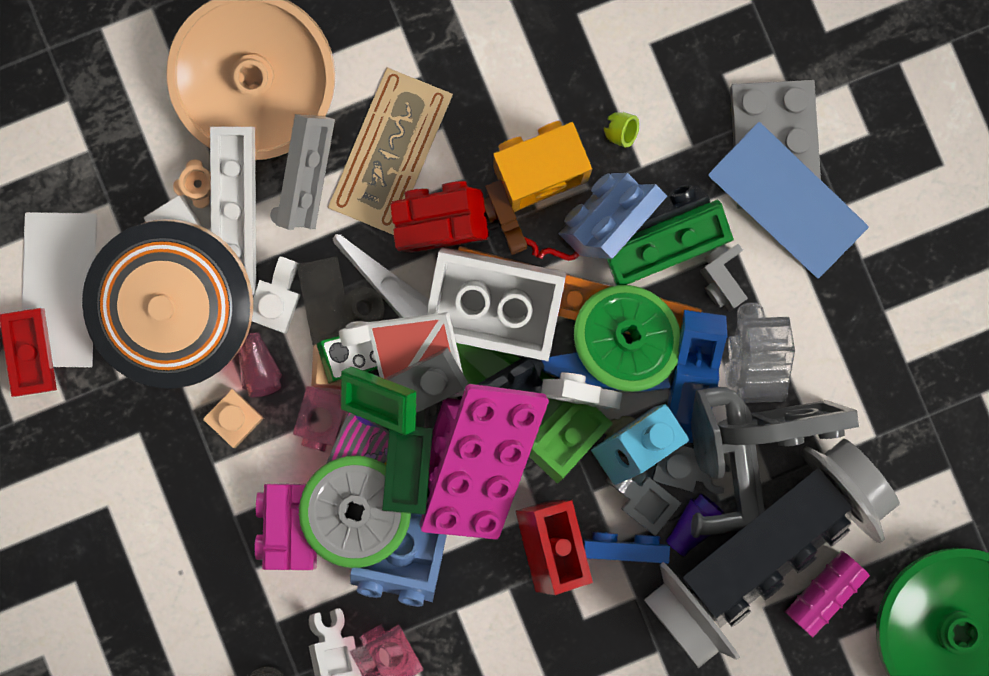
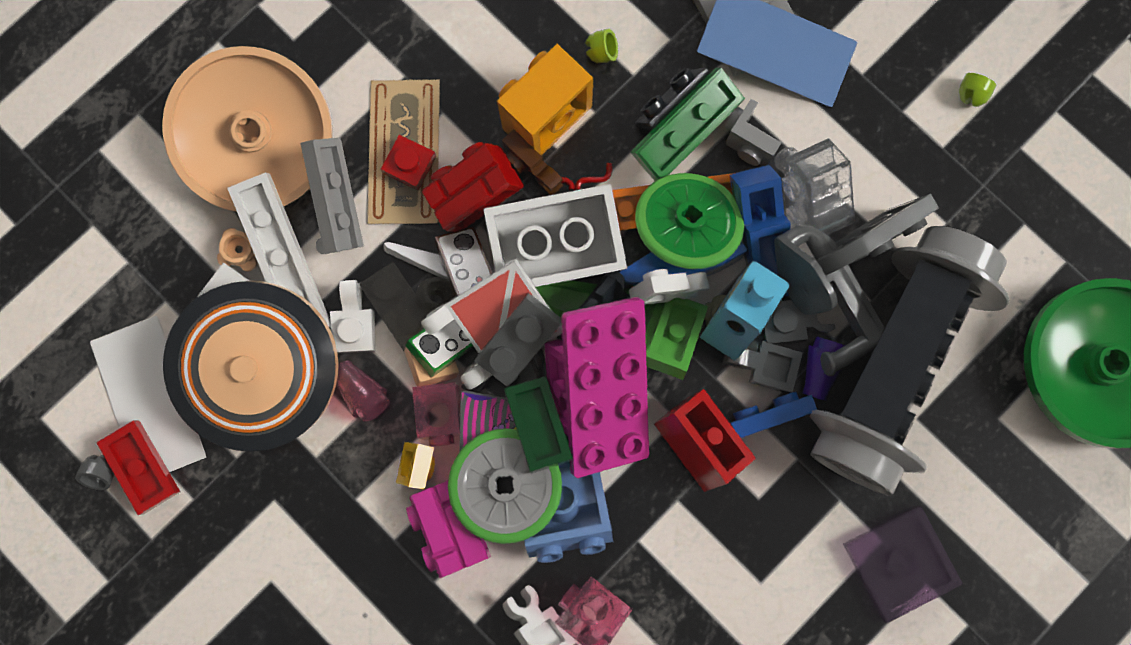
camera: 20 degrees left, 5 degrees down
(233, 418) = (356, 449): light nougat plate -> none
(281, 457) = (416, 465): none -> yellow plate
(378, 400) = (484, 369): green tile -> none
(390, 165) = (408, 162): none -> red plate
(403, 285) = (463, 259): none -> white tile
(610, 215) = (626, 119): medium blue plate -> none
(827, 593) = (971, 379): dark pink axle -> none
(961, 322) = (976, 89): none -> lime hinge

